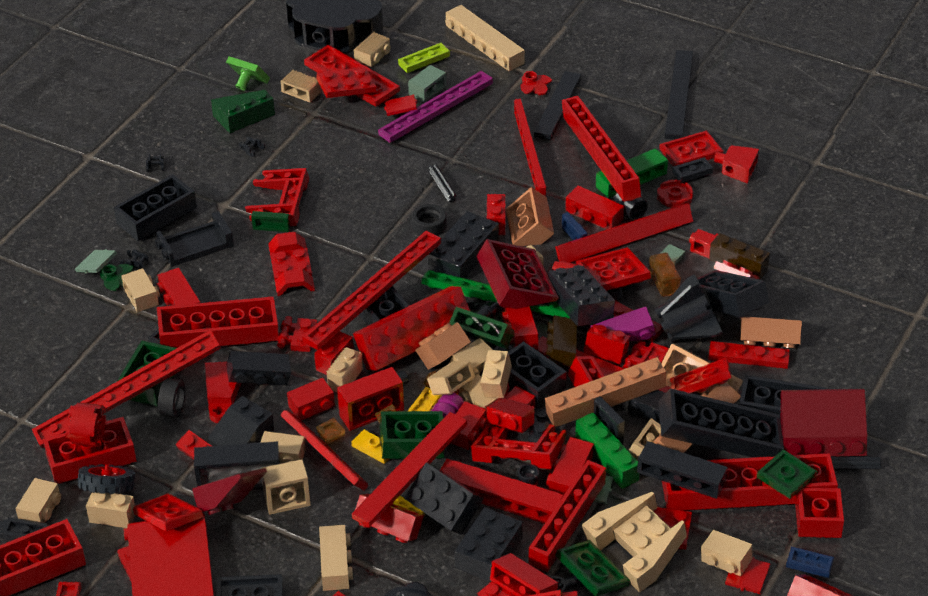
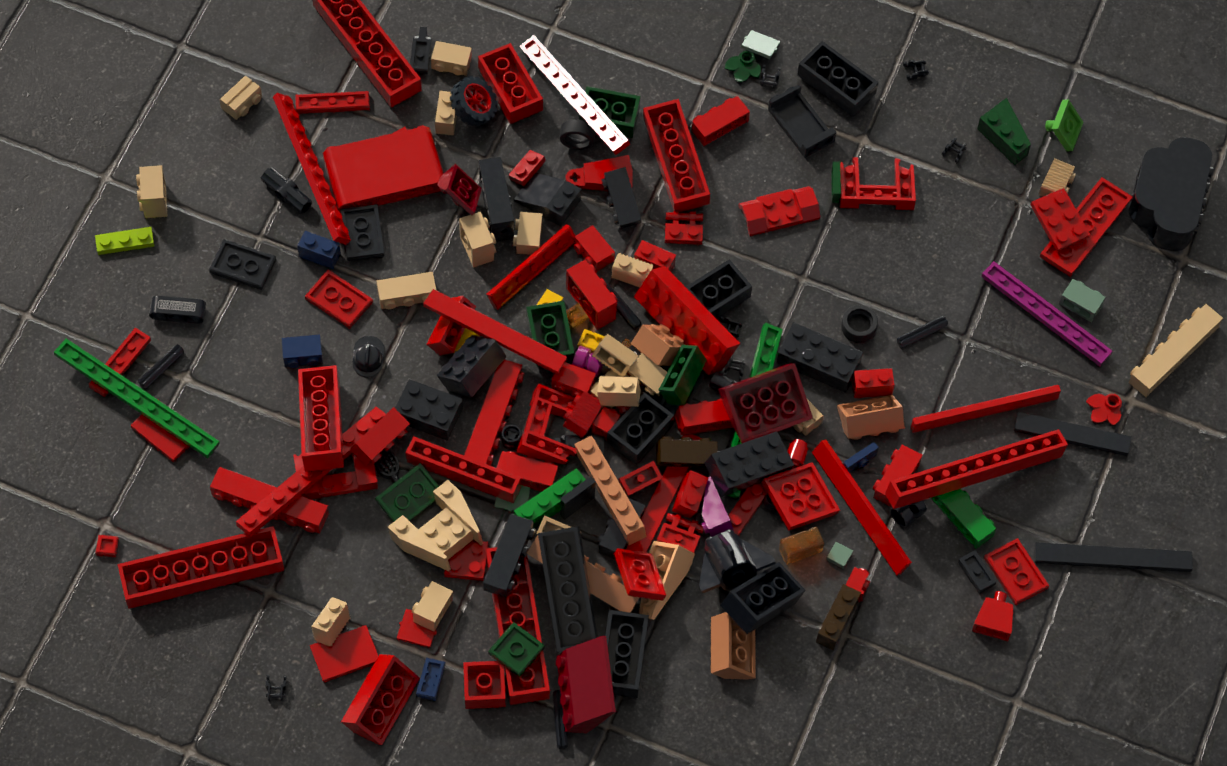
camera: 80 degrees right, 20 degrees up
(86, 424) = (514, 68): red brick -> none
(140, 290) = (723, 86): tan brick -> none
(167, 512) = (441, 153): red tile -> none
(330, 430) = (557, 270): clear orange plate -> none
(371, 290) = (725, 276): red plate -> none
(372, 49) = (1133, 241): tan brick -> none
(400, 105) = (1041, 279): red piece -> none
(423, 57) = (1130, 293): lime plate -> none
(674, 193) = (939, 556): red tile -> none
(732, 268) = (807, 609): plate -> none
(749, 354) = (700, 630): red plate -> none

